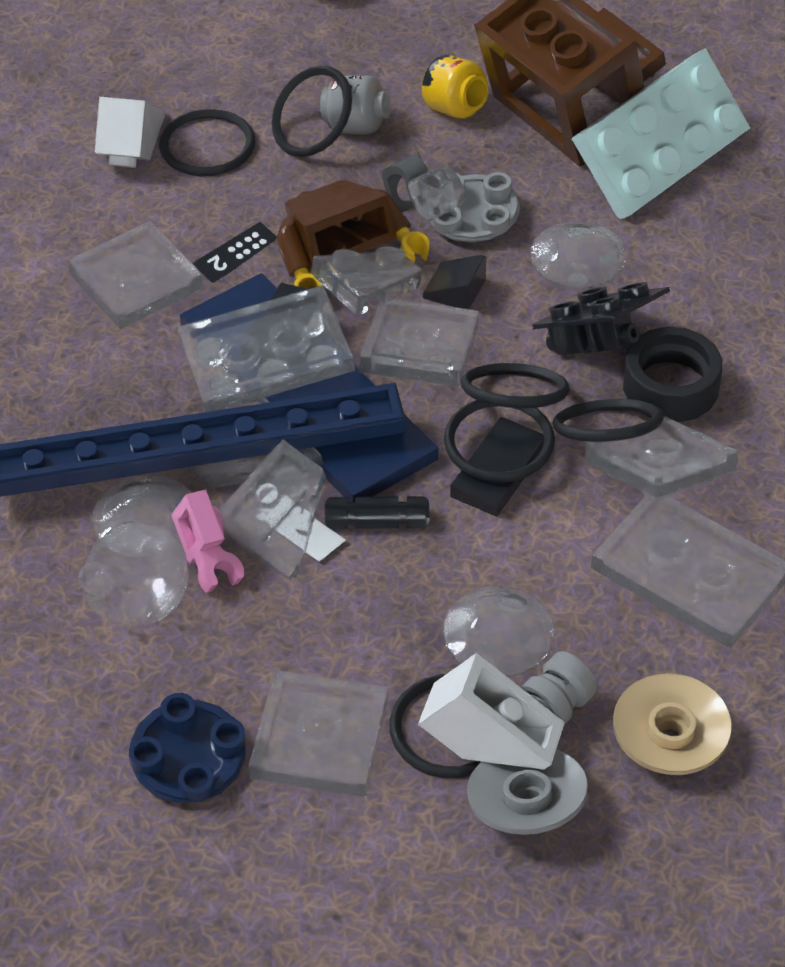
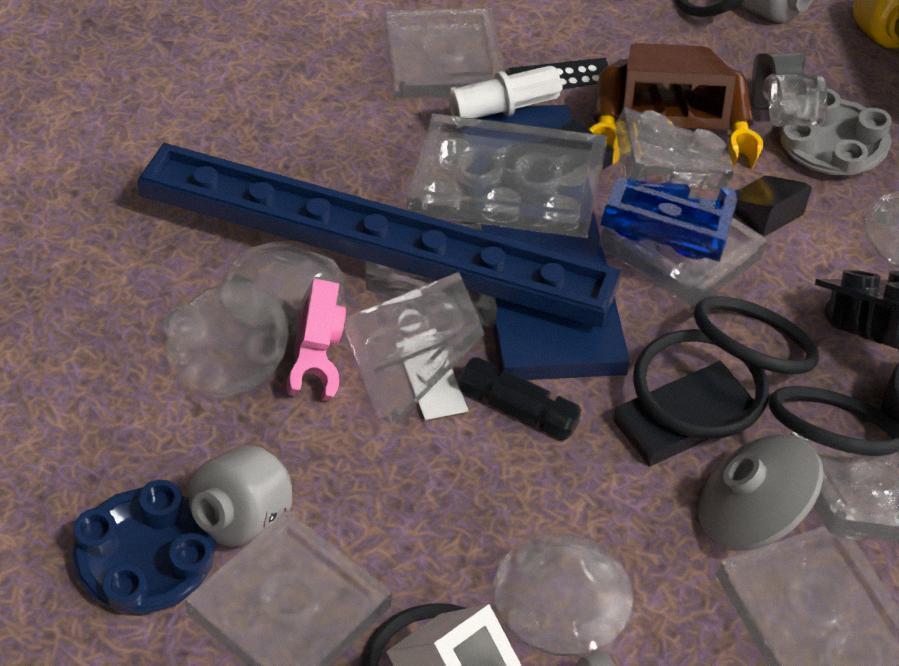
camera: 25 degrees right, 0 degrees up
(212, 287) = (505, 93): none -> white axle
(235, 671) = (239, 494): none -> light grey head
(397, 327) = (670, 218): none -> clear blue wing
(589, 494) = (760, 492): none -> light grey dish

